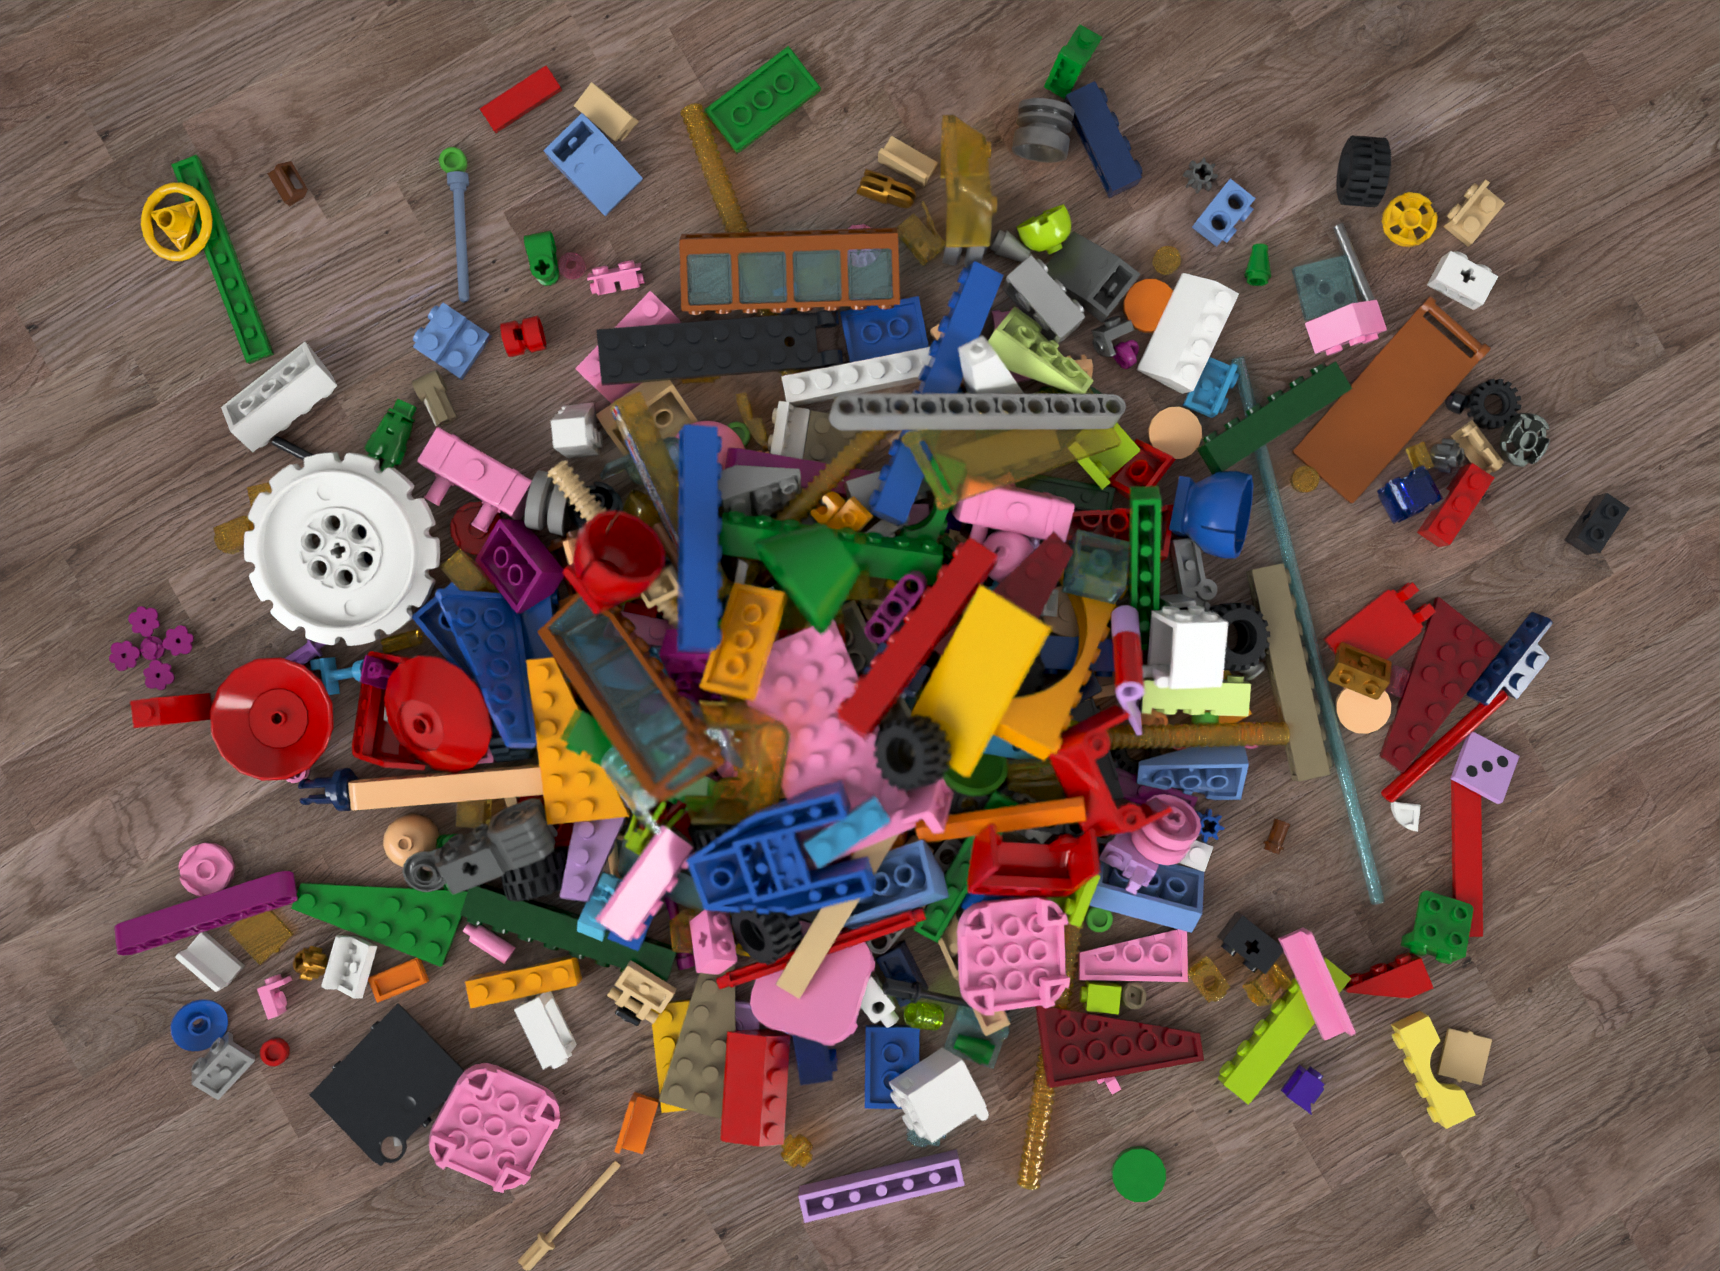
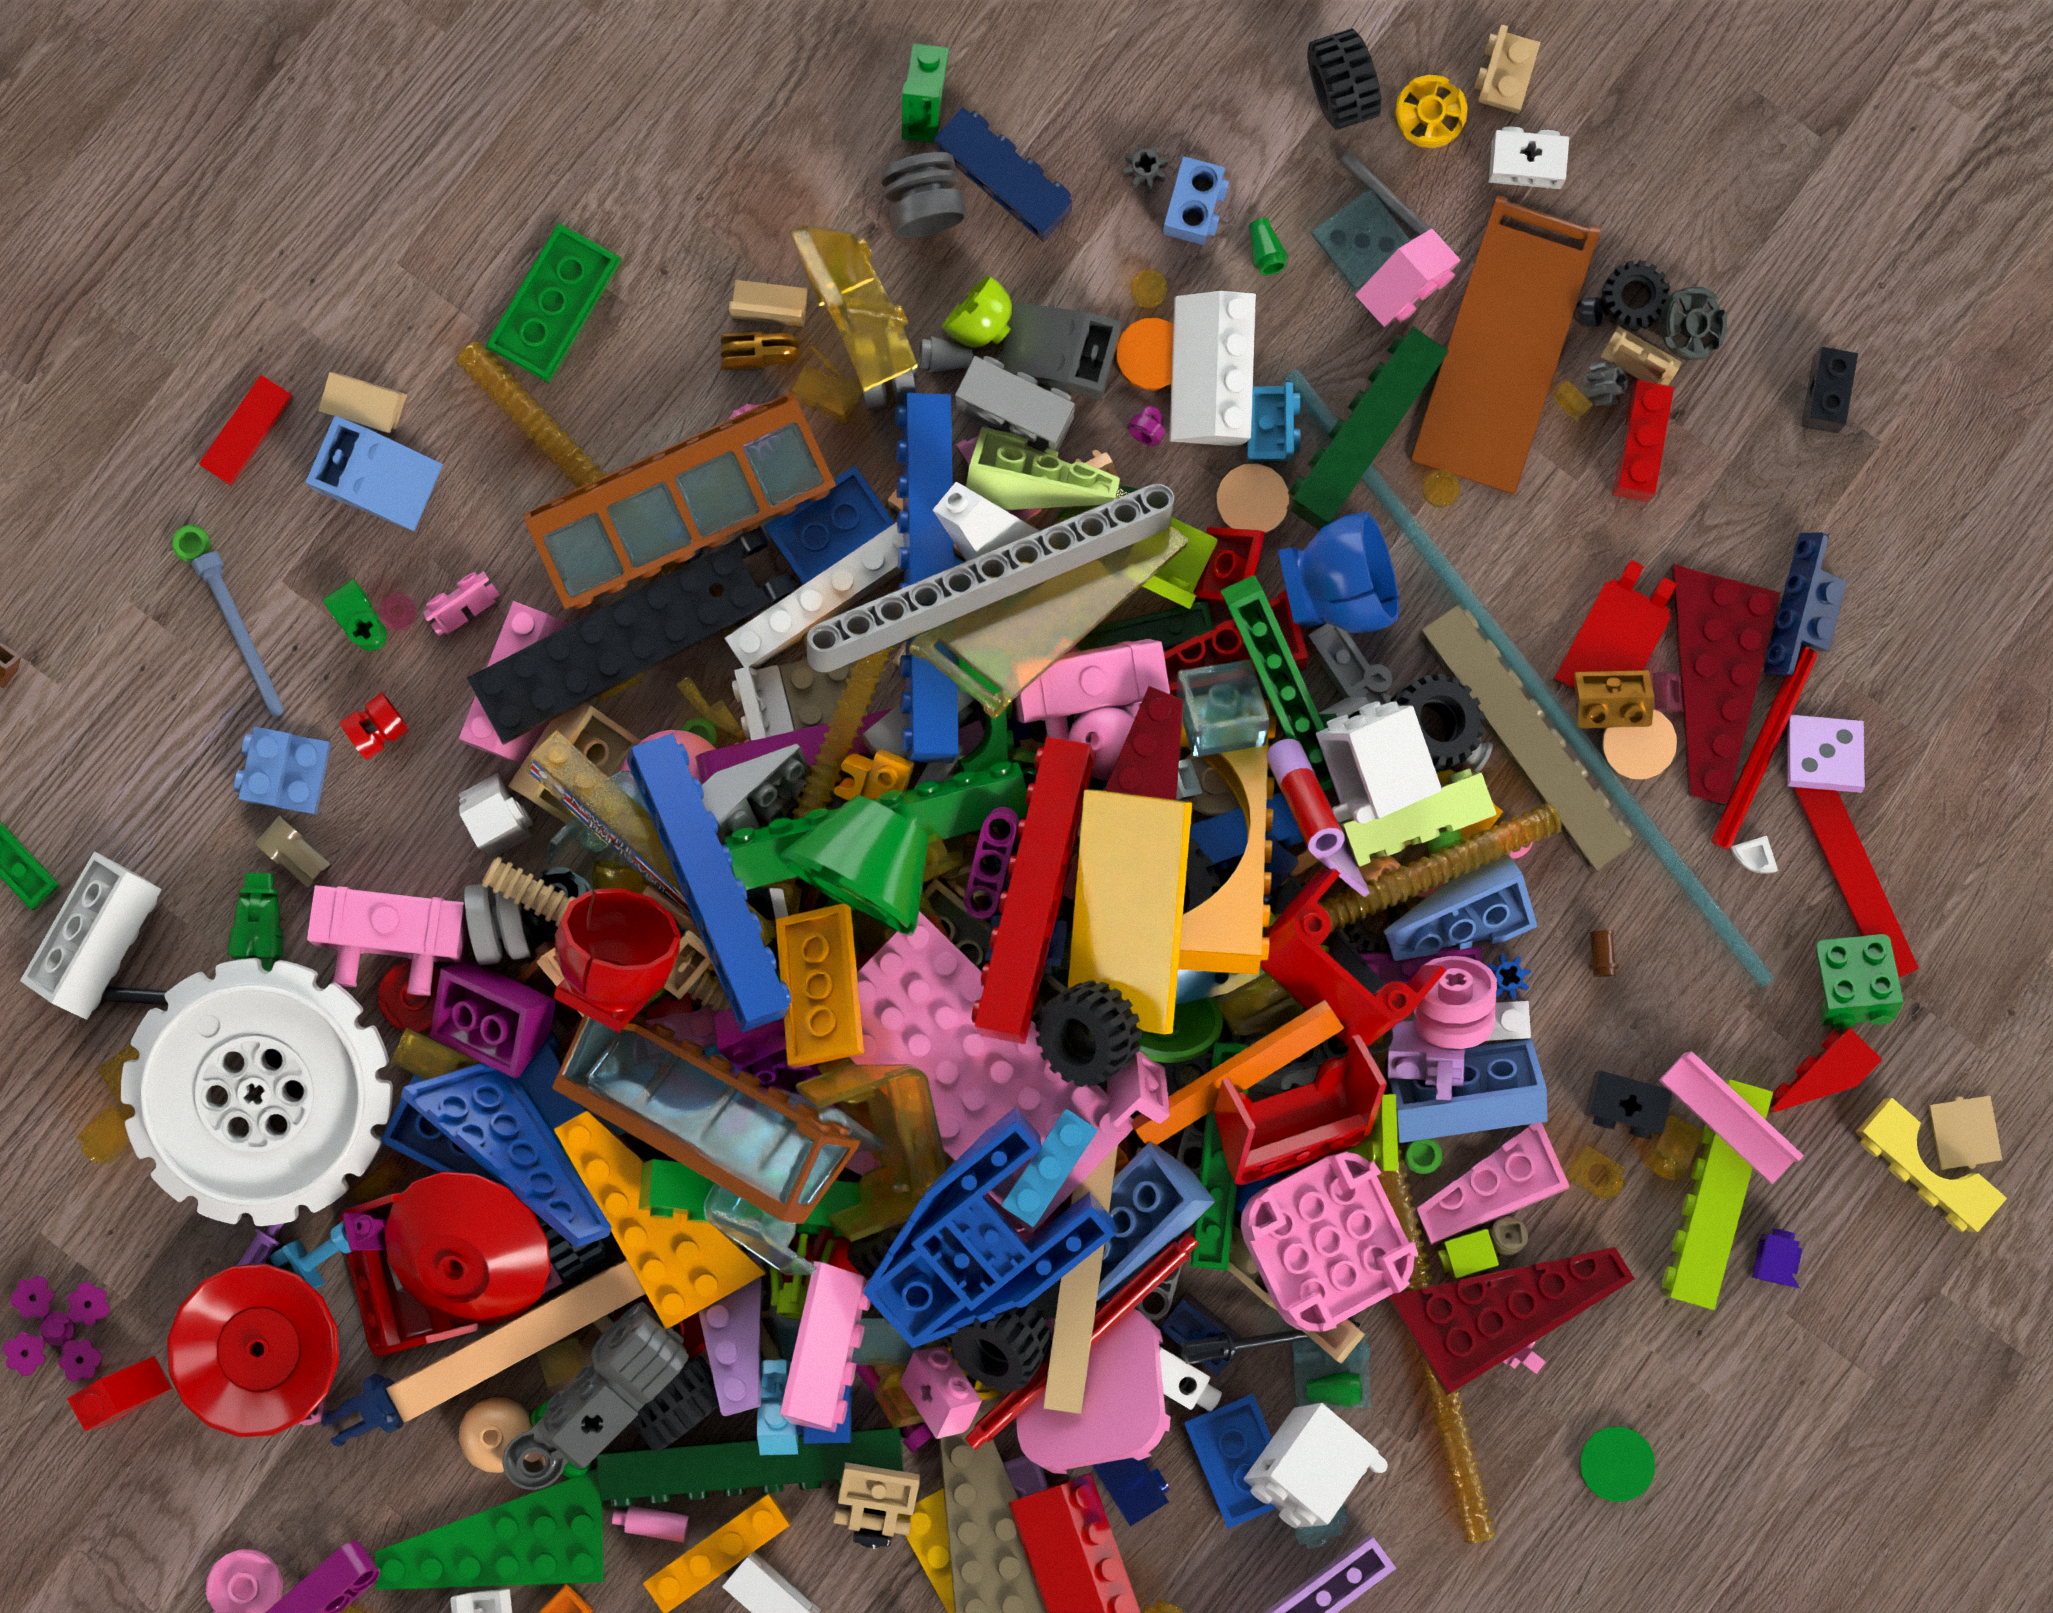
camera: 20 degrees left, 5 degrees down
(924, 1015) = (1252, 1374): clear neon green brick -> none
(1112, 329) = (1117, 403): dark grey bracket -> none
(1409, 495) = (1579, 453): clear blue brick -> none

